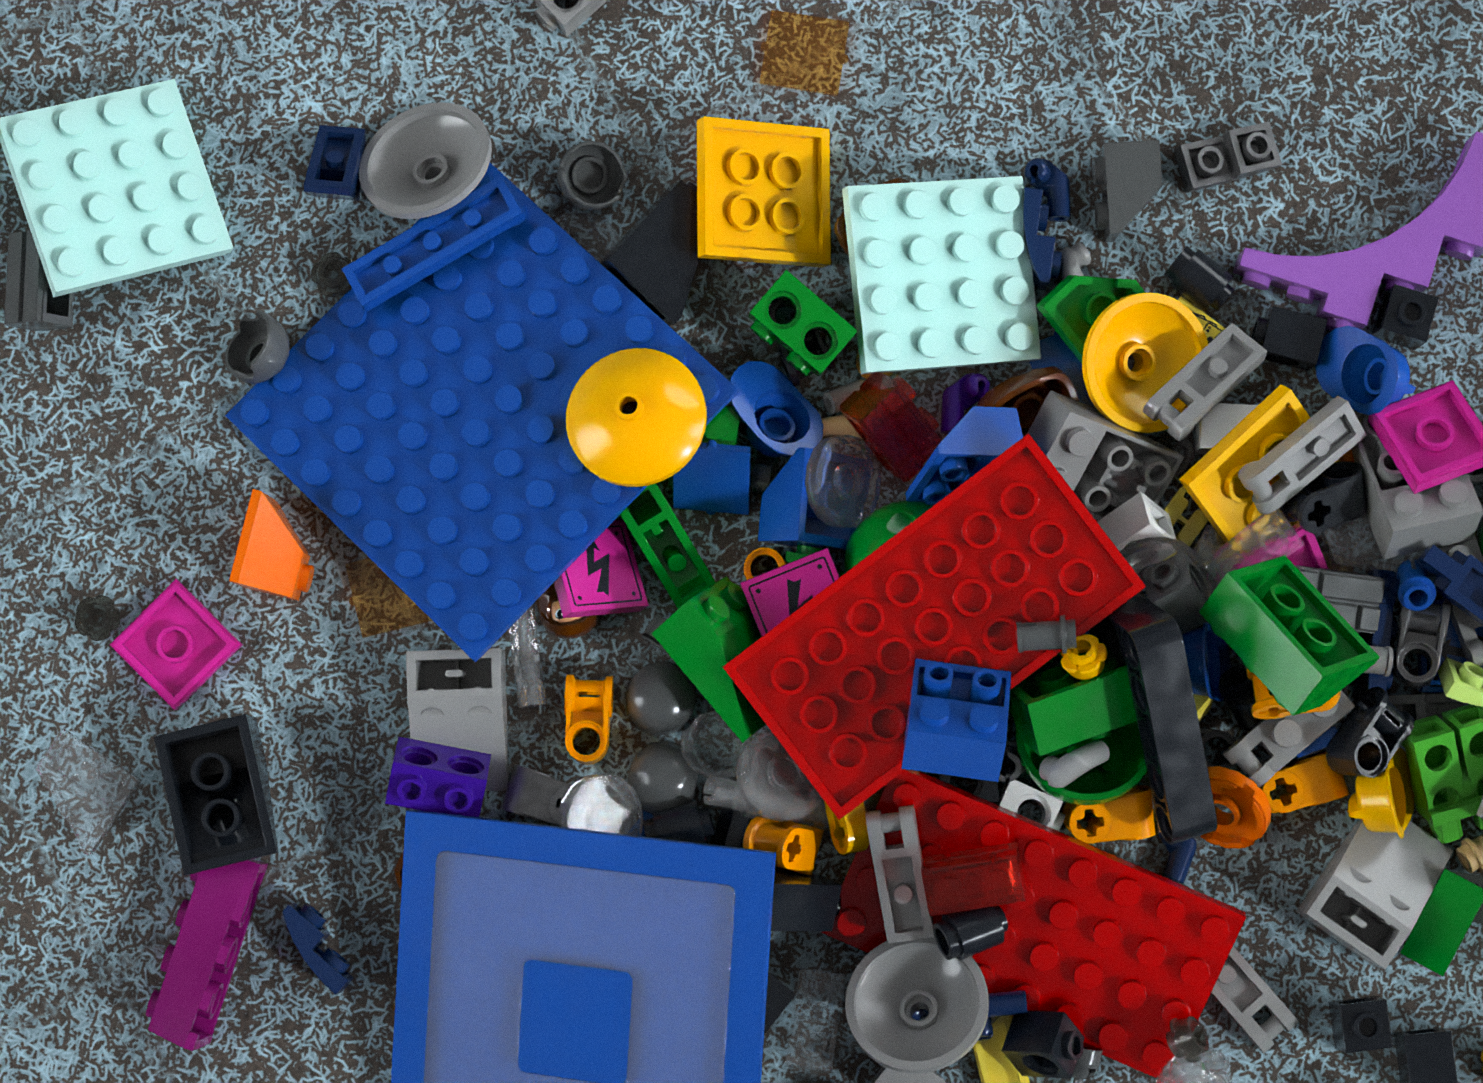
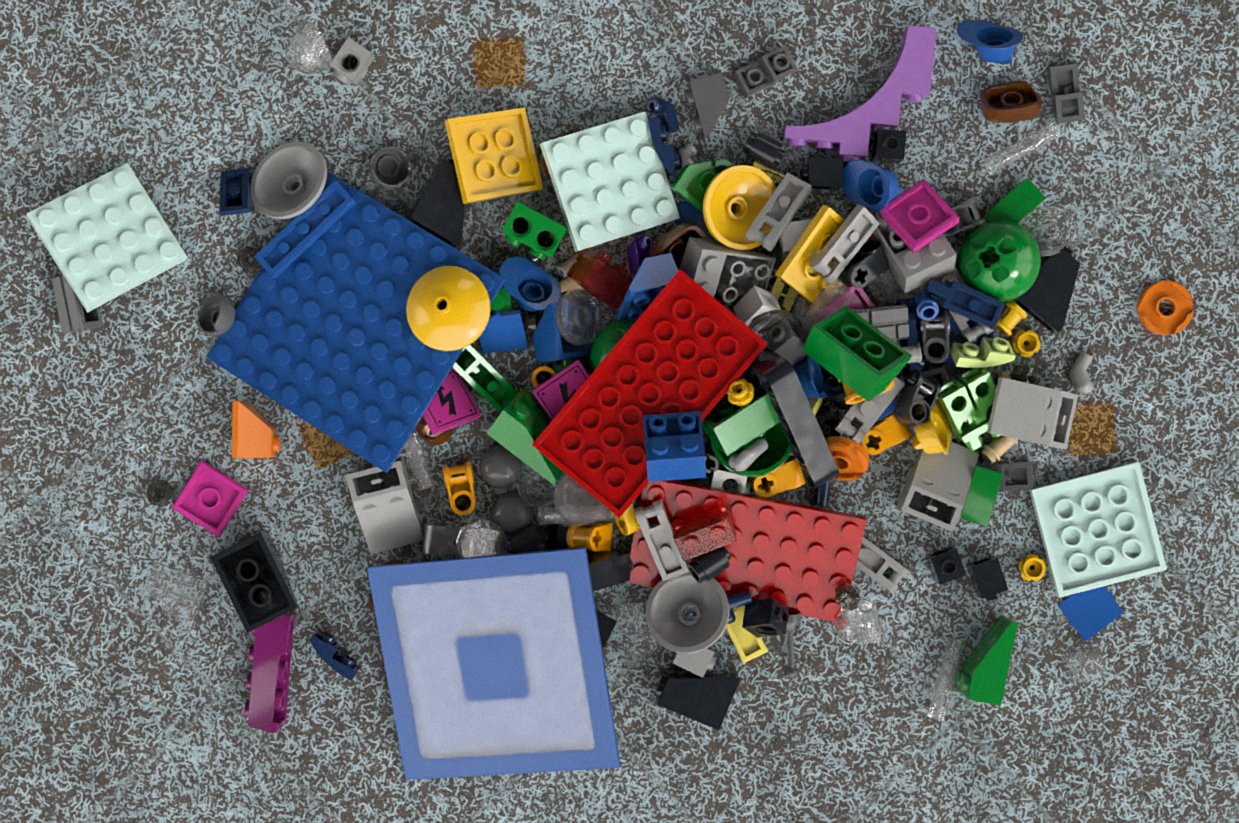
camera: 15 degrees left, 5 degrees up
(437, 778) = (381, 544): dark purple brick -> none
(1046, 635) = (716, 385): dark grey pin -> none

